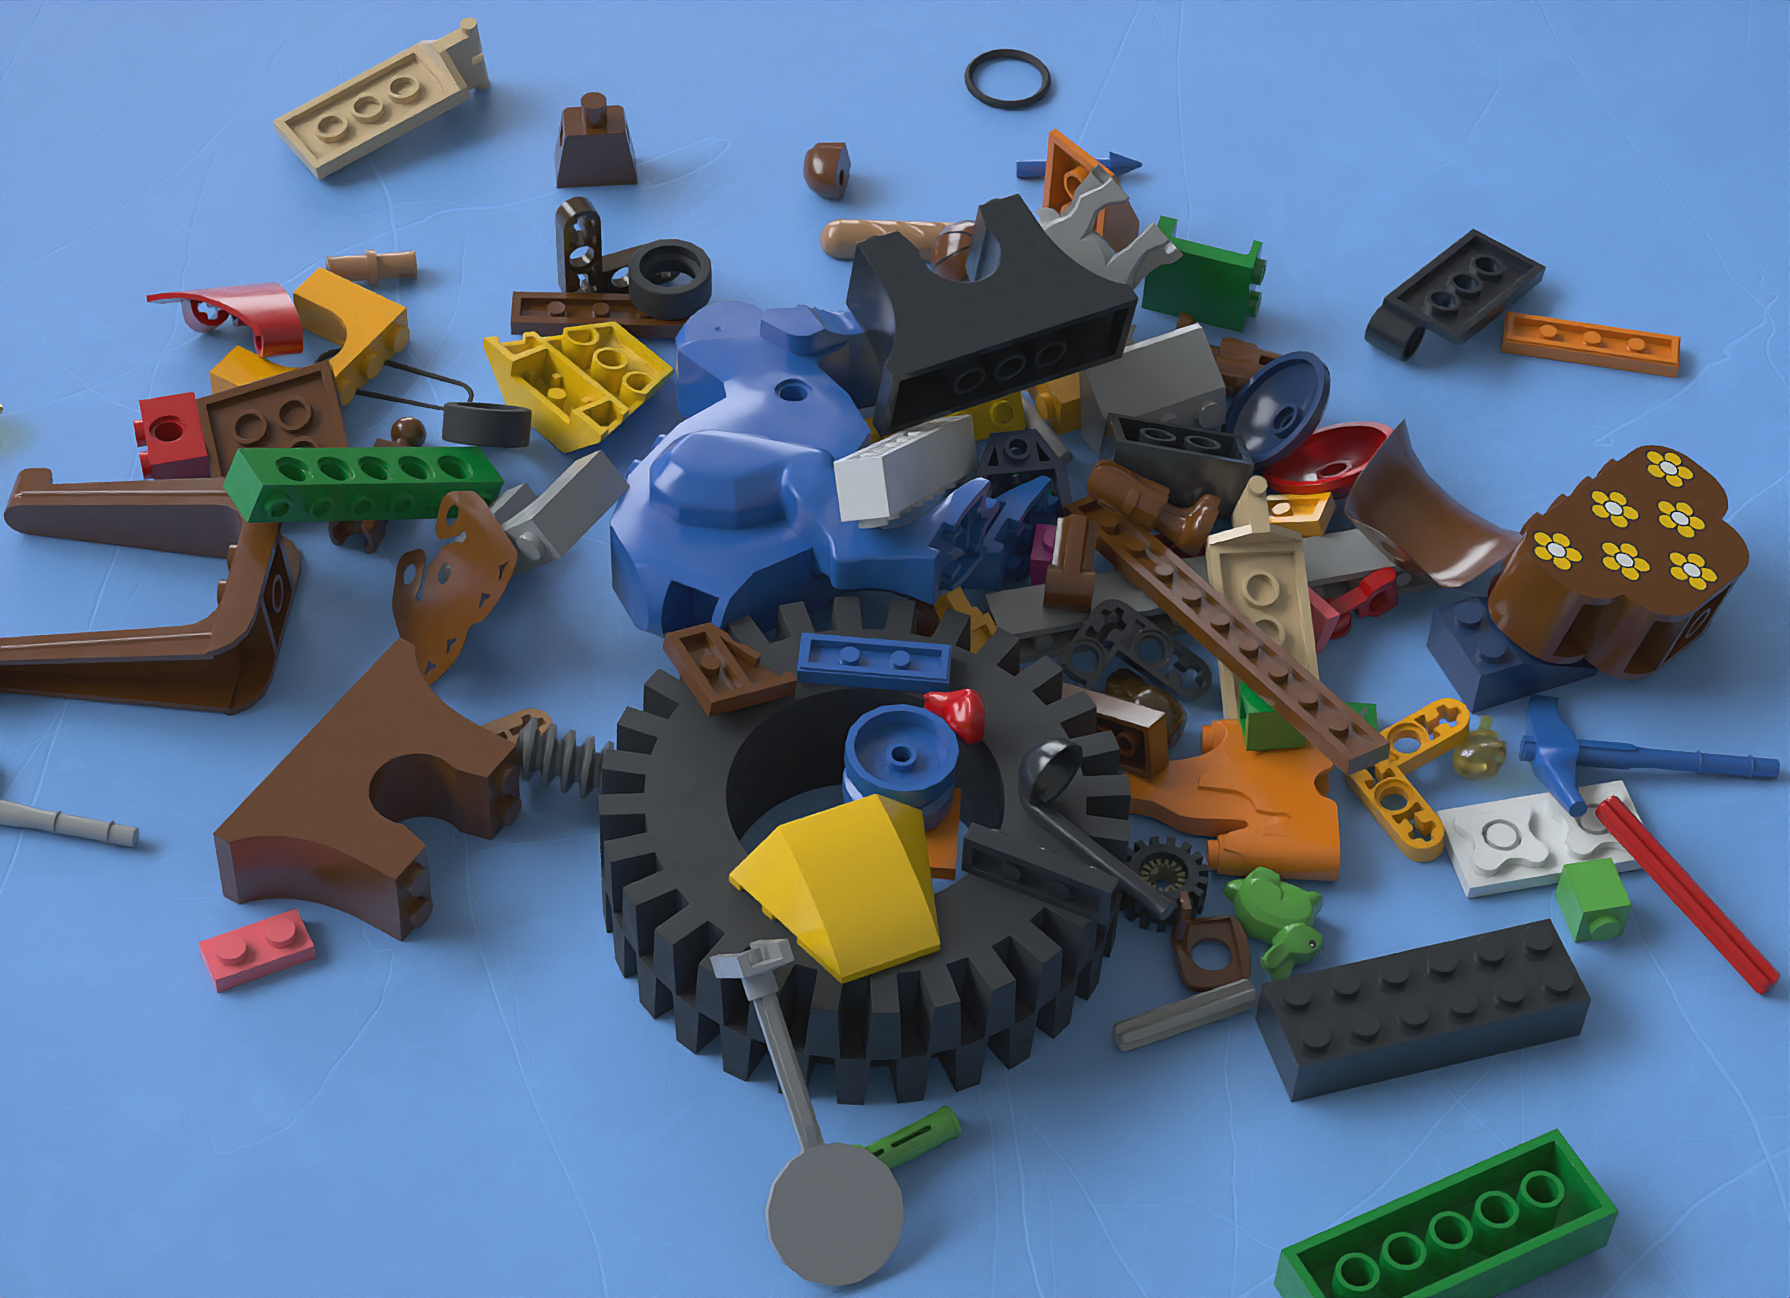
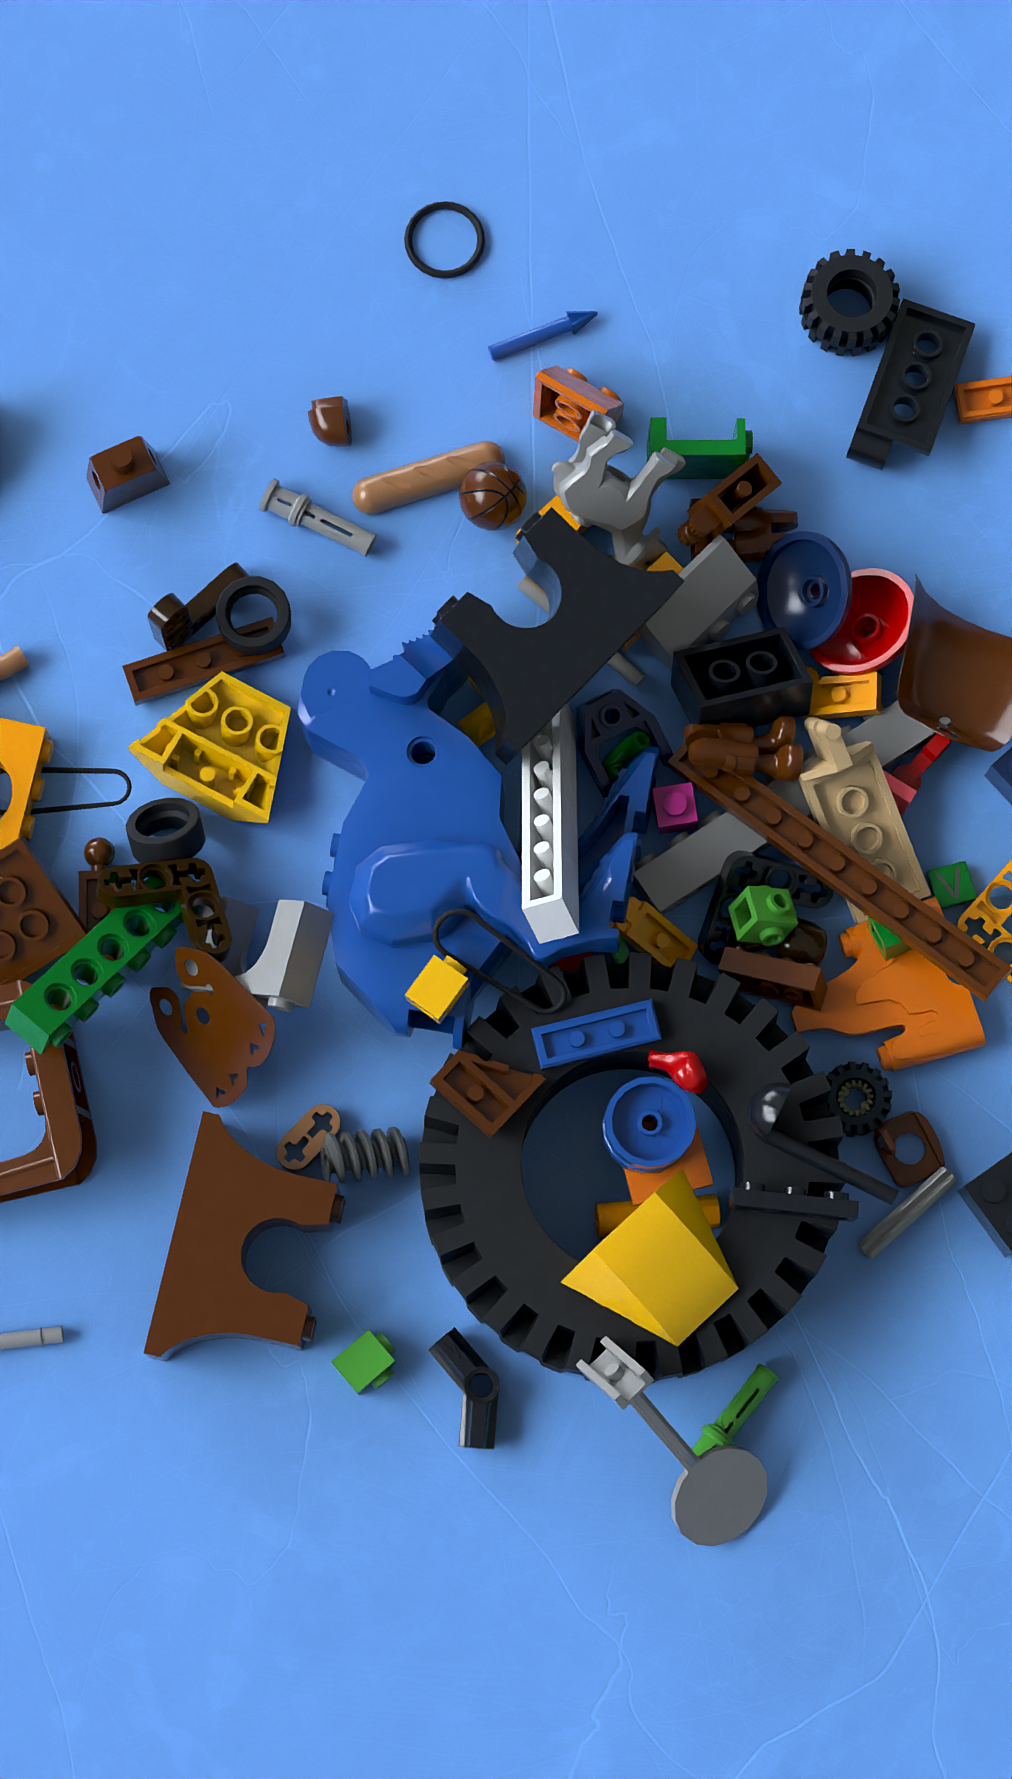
camera: 20 degrees left, 30 degrees up
(257, 950) = (200, 1403): coral plate -> none
(468, 959) = (366, 1362): none -> bright green brick
(488, 459) = (186, 892): none -> dark brown beam
(580, 1044) = (477, 1413): none -> black piece
(710, 552) = (438, 987): none -> yellow brick
(762, 229) = (297, 514): none -> light grey pin
(811, 541) = (512, 946): none -> black piece
(1071, 576) = (700, 845): reddish brown piece -> none
(1118, 658) = (763, 915): none -> bright green brick
(1223, 303) = (728, 501): none -> reddish brown hinge
(1278, 916) = (951, 1100): bright green animal -> none
(1412, 212) = (857, 274): none -> black tyre

